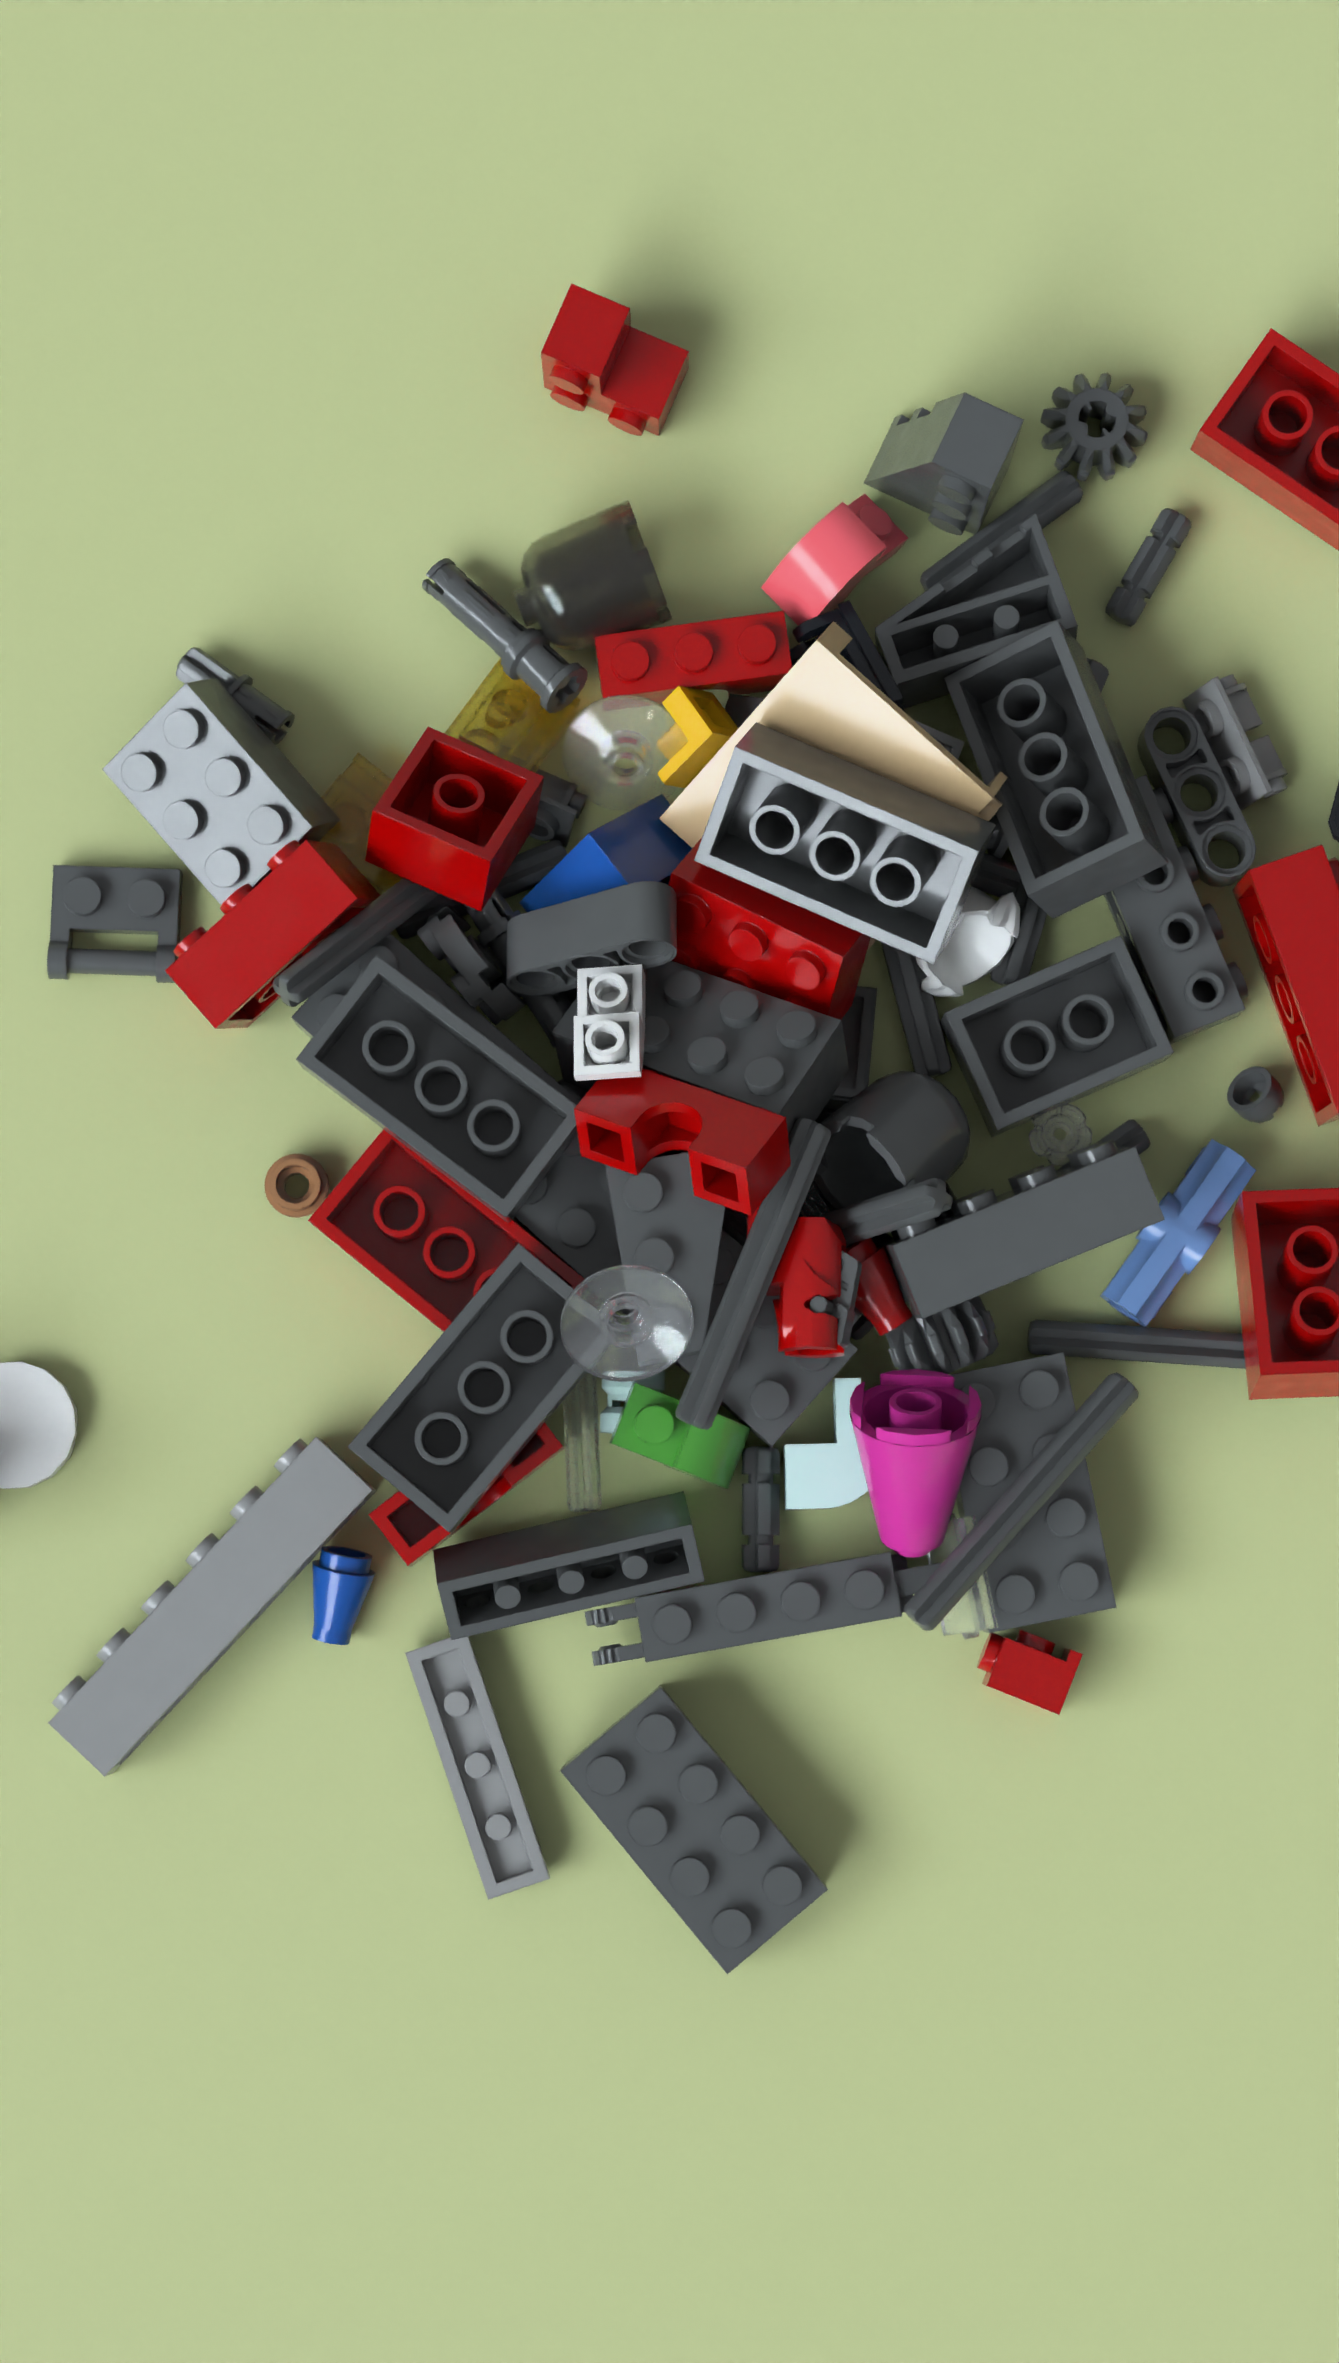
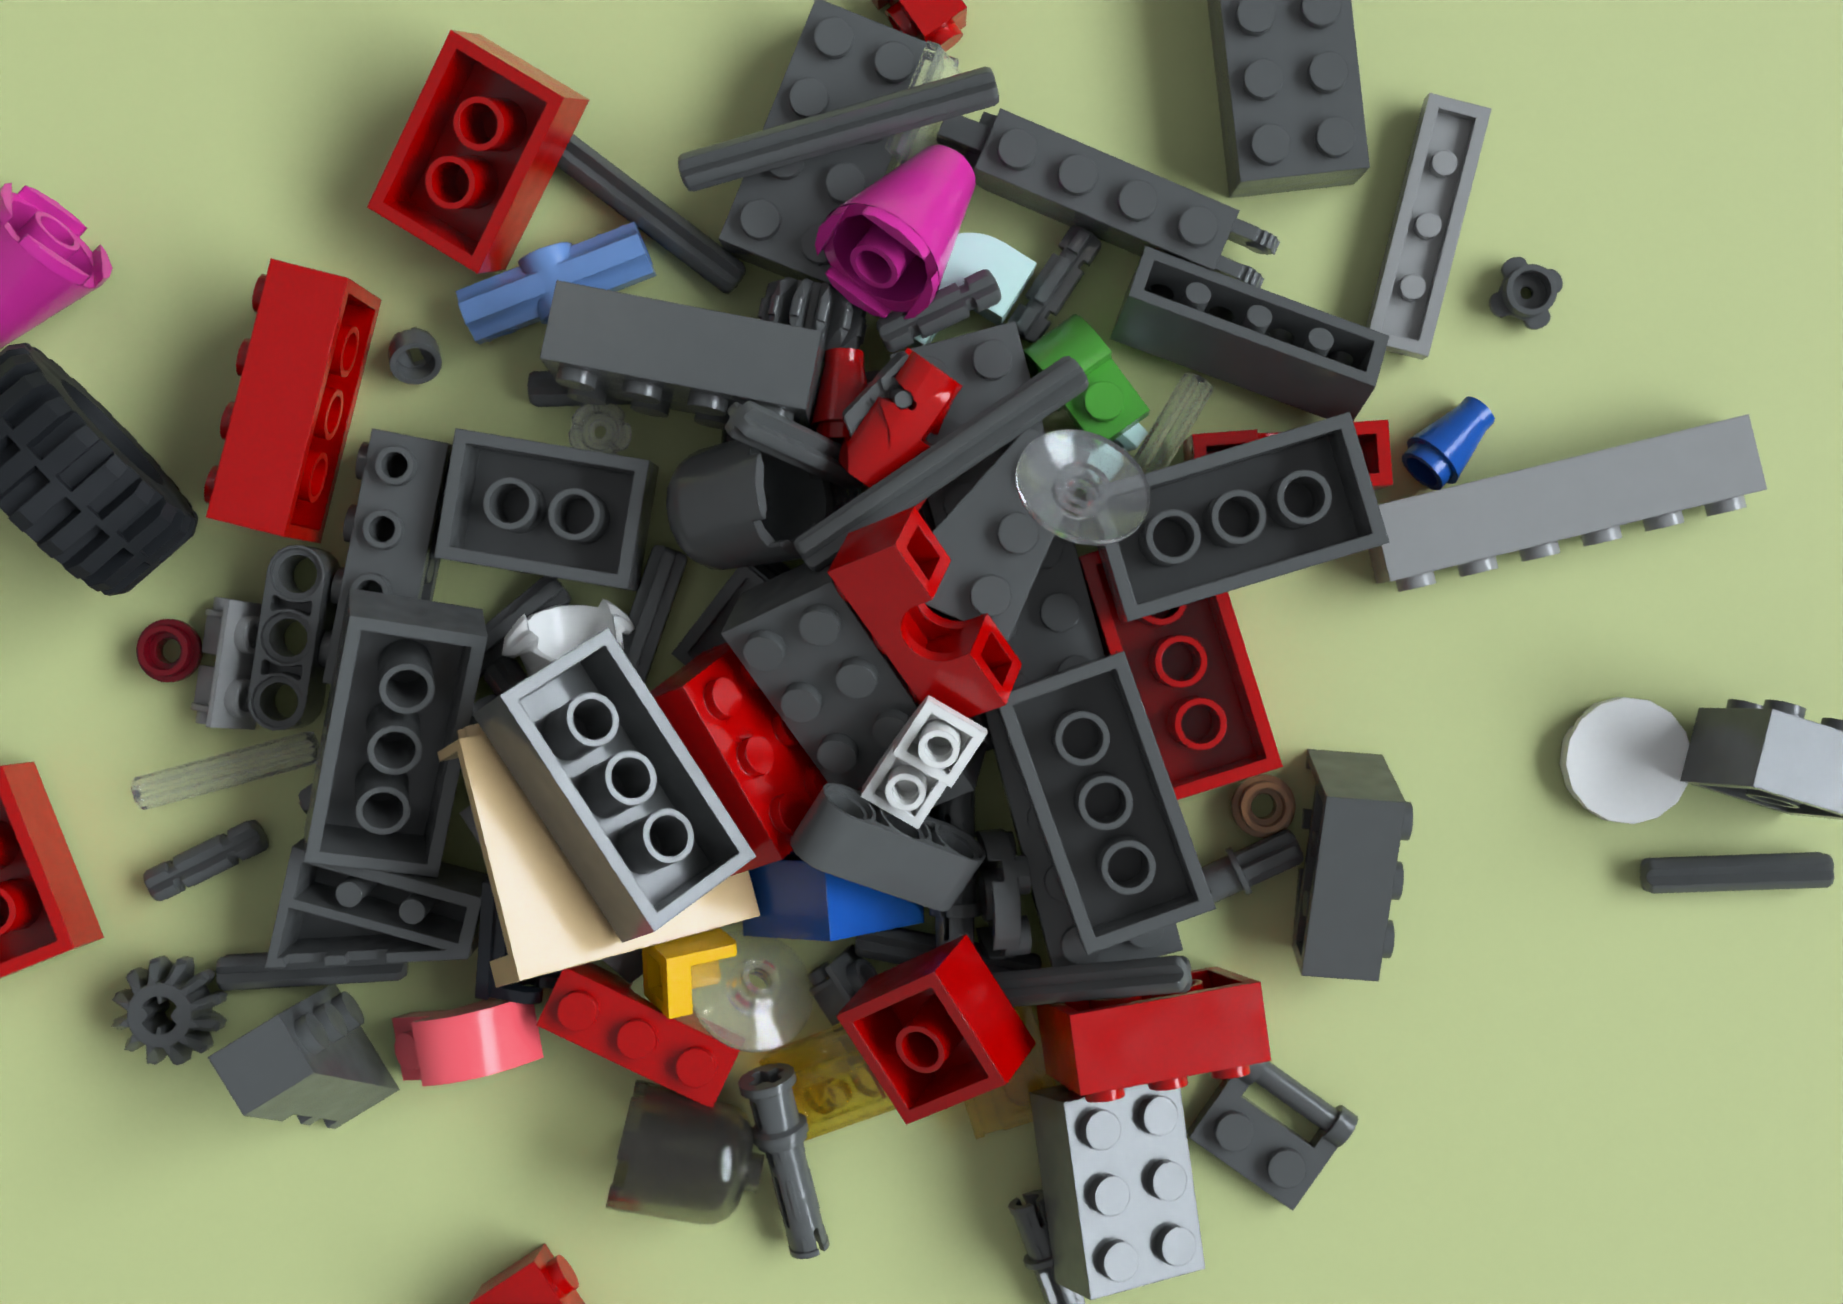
camera: 140 degrees left, 5 degrees up
(195, 1180) = (1349, 866): none -> dark grey wedge
(279, 1122) = (1252, 864): none -> dark grey axle
(345, 1782) = (1540, 281): none -> dark grey plate
(834, 1419) = (947, 308): none -> dark grey axle
(1181, 651) = (225, 770): none -> clear axle
(1304, 702) = (151, 645): none -> dark red plate

